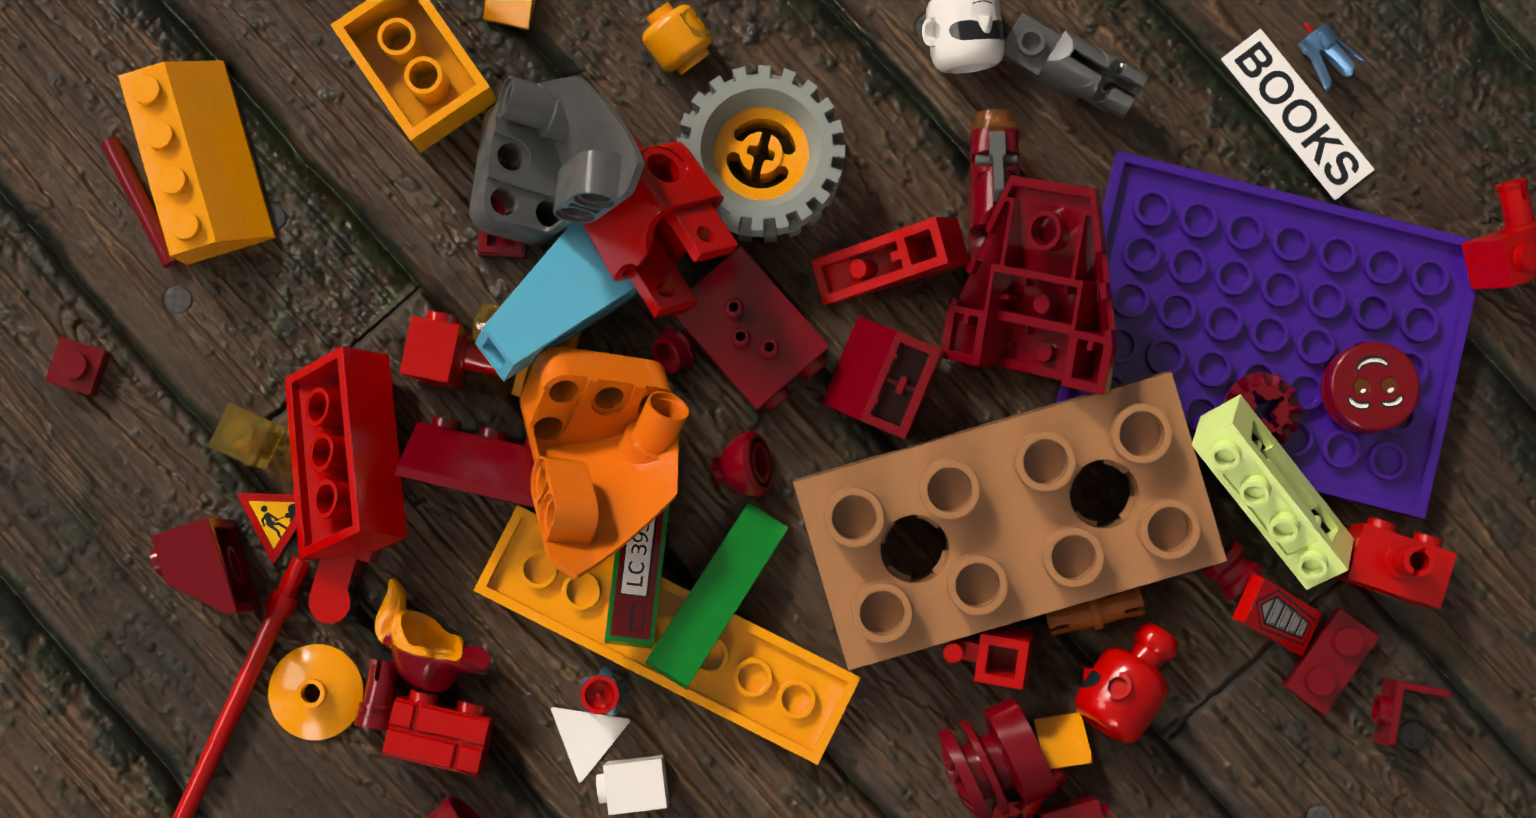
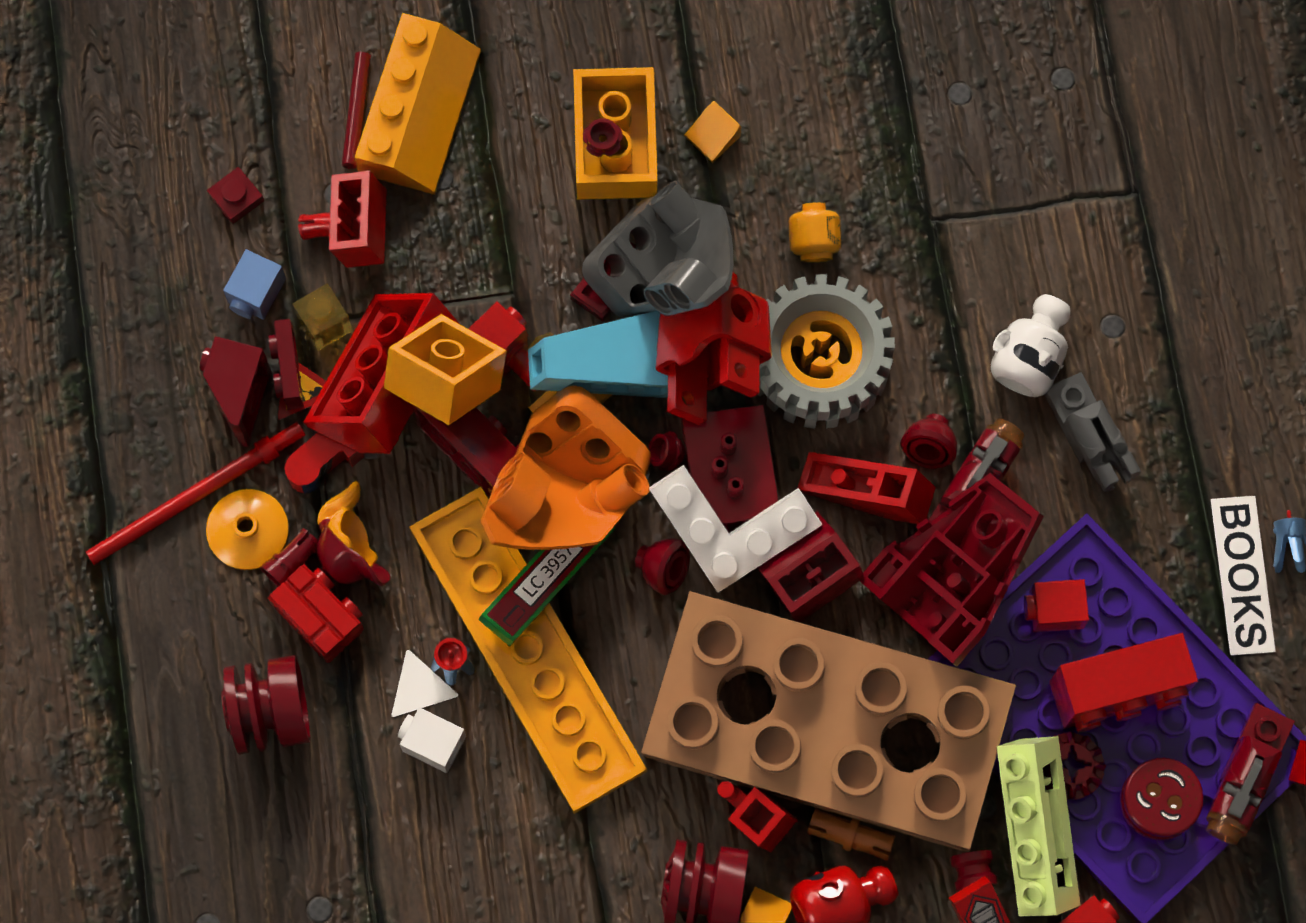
camera: 30 degrees right, 10 degrees down
(157, 448) = (254, 285): none -> medium blue brick
(213, 319) = (354, 220): none -> red brick
(231, 492) = (284, 348): none -> dark red plate
(397, 69) = (599, 128): none -> dark red plate
(405, 422) = (444, 369): none -> light orange brick
(716, 596) = (581, 641): green tile -> none
(808, 414) = (731, 555): none -> white plate
(923, 176) = (930, 442): none -> dark red brick
(1153, 262) = (1057, 605): none -> red brick
(1271, 300) = (1123, 682): none -> red brick
(1437, 309) = (1248, 774): none -> dark red plate

